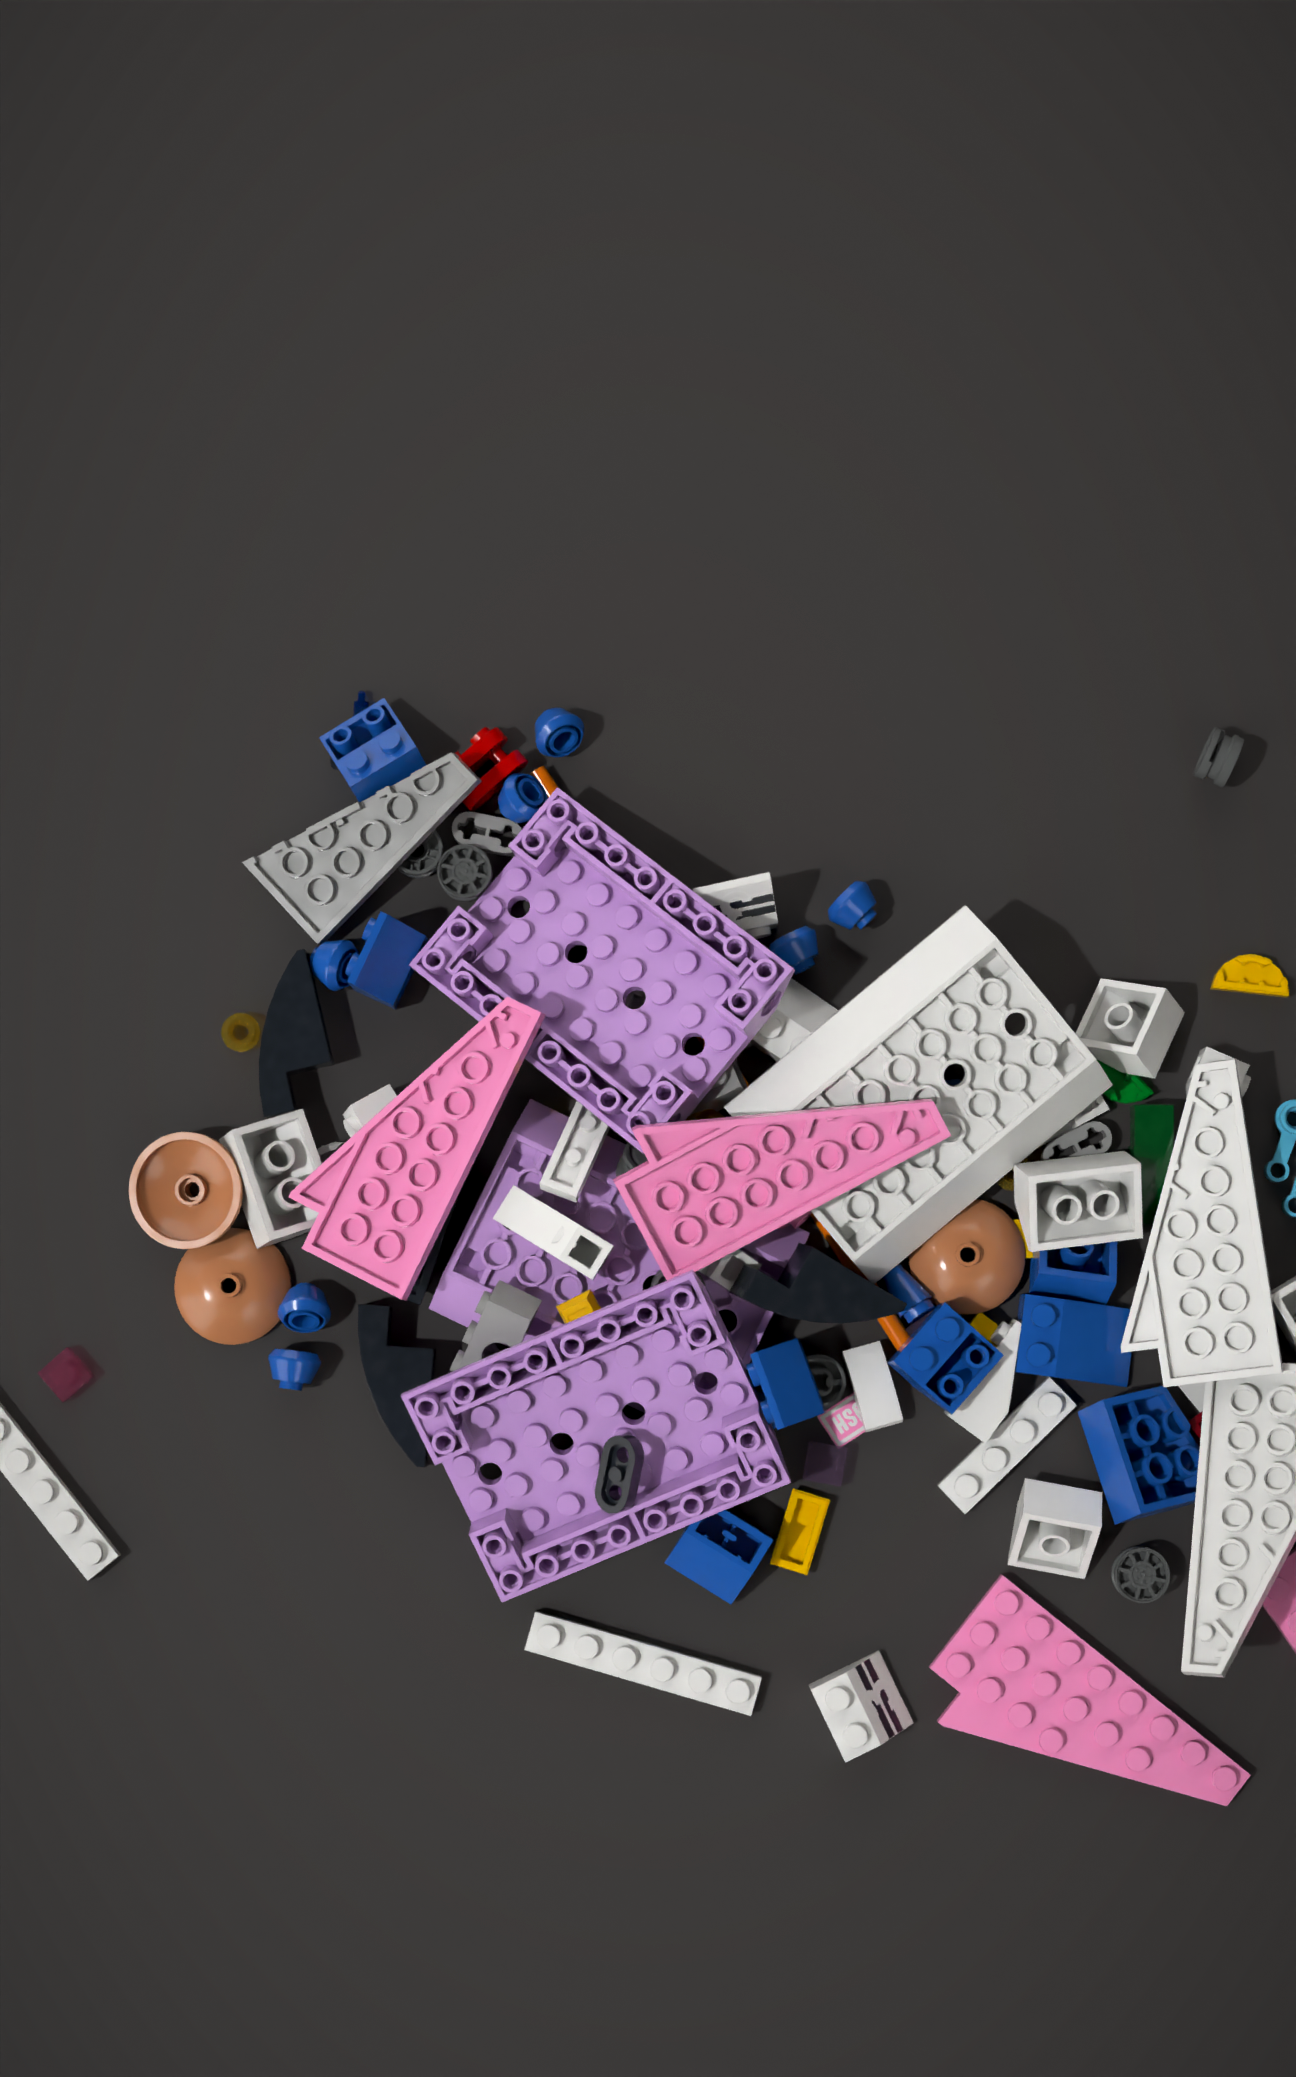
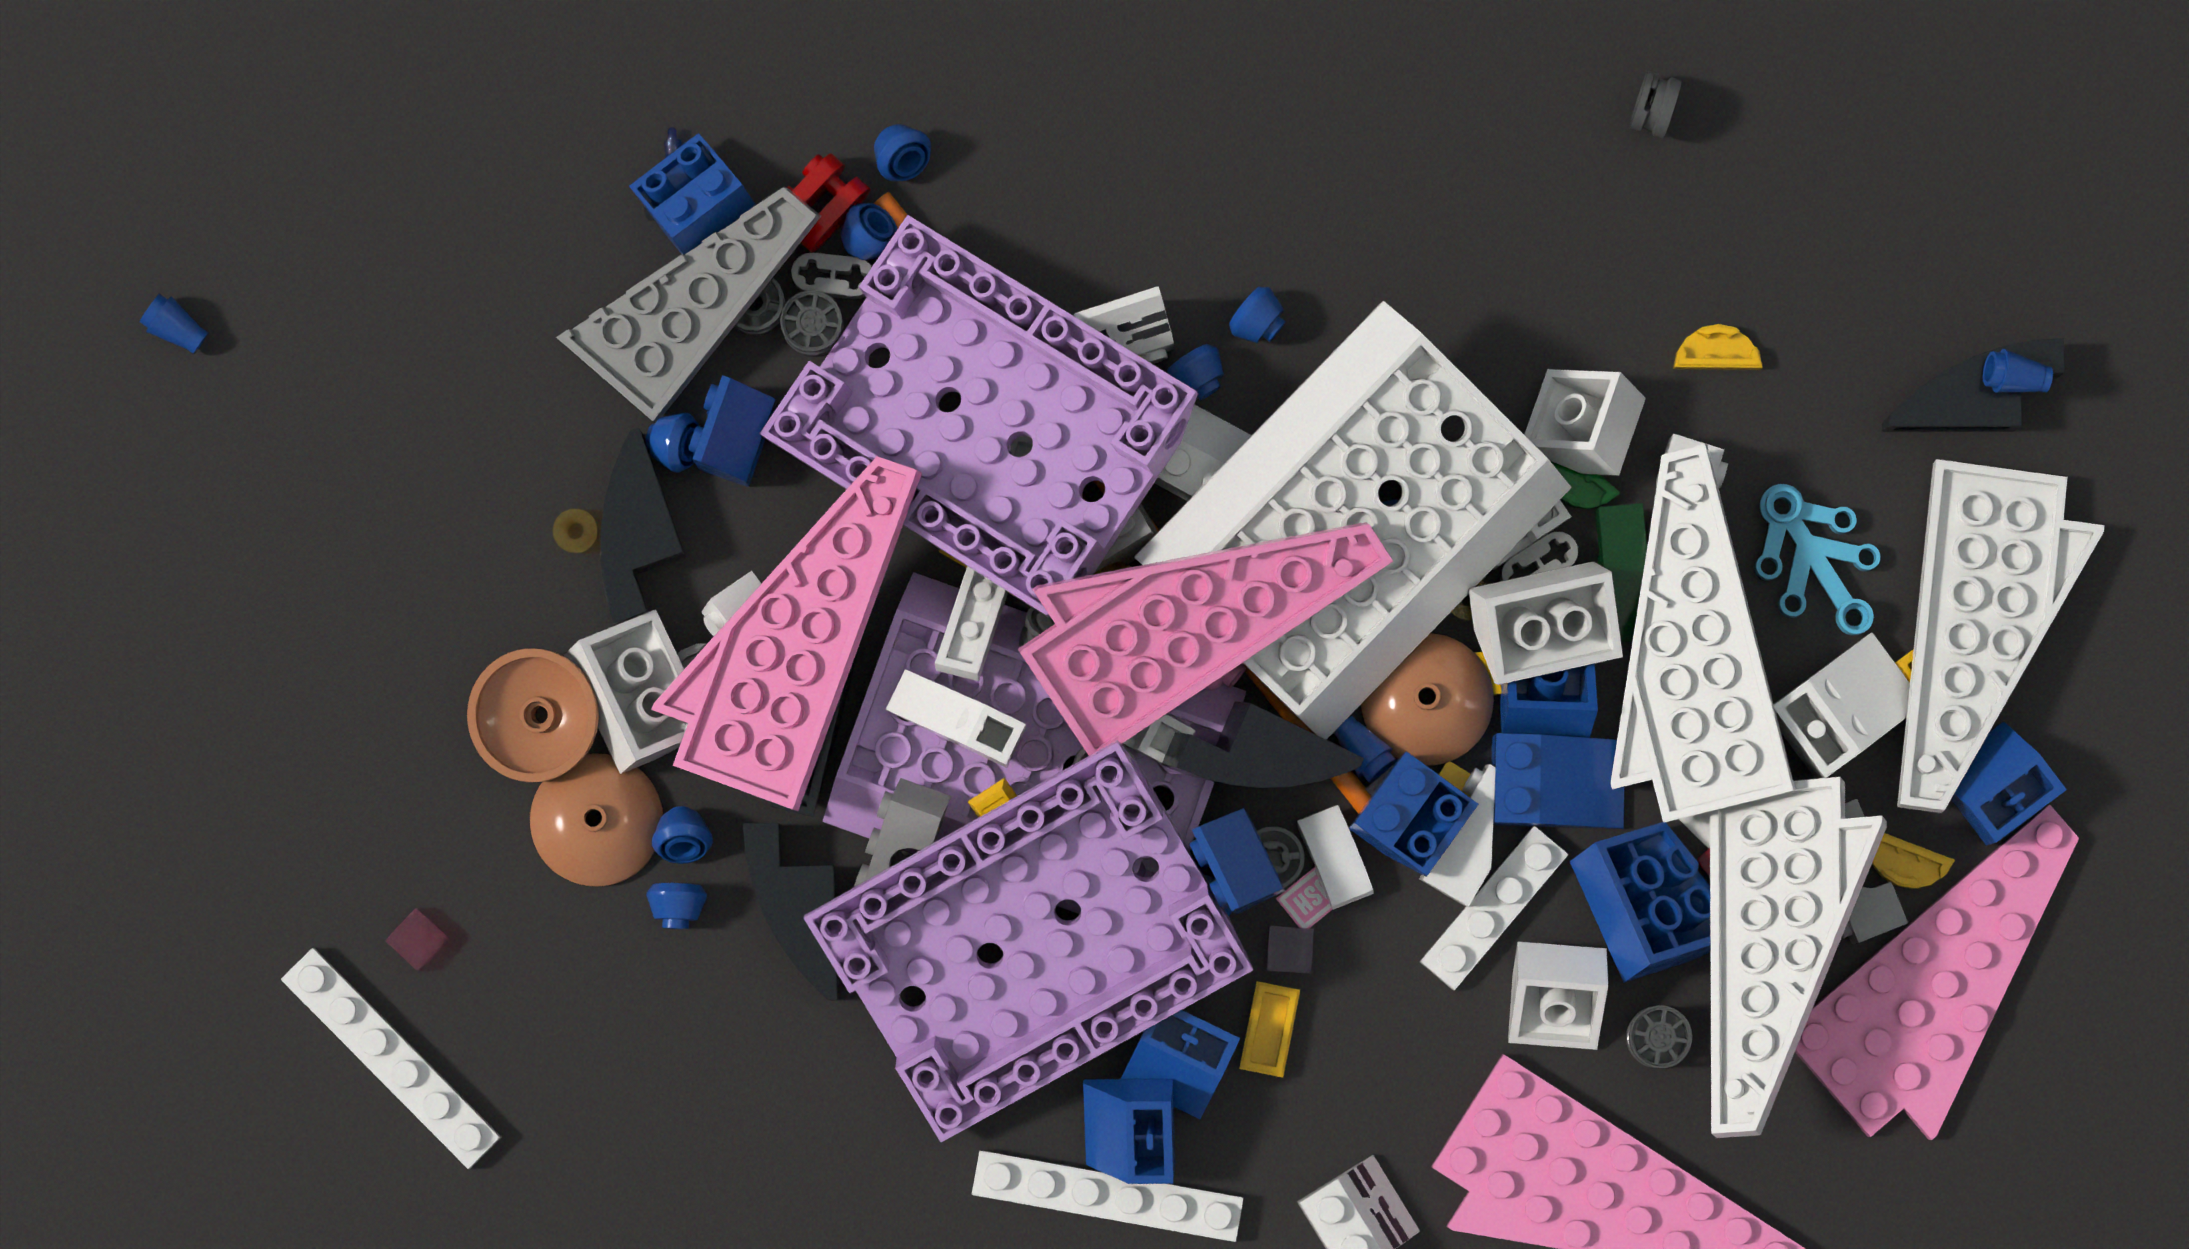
camera: 10 degrees left, 0 degrees up
(619, 1471) = (1058, 979): black plate -> none
(669, 1608) = (1130, 1129): none -> blue slope

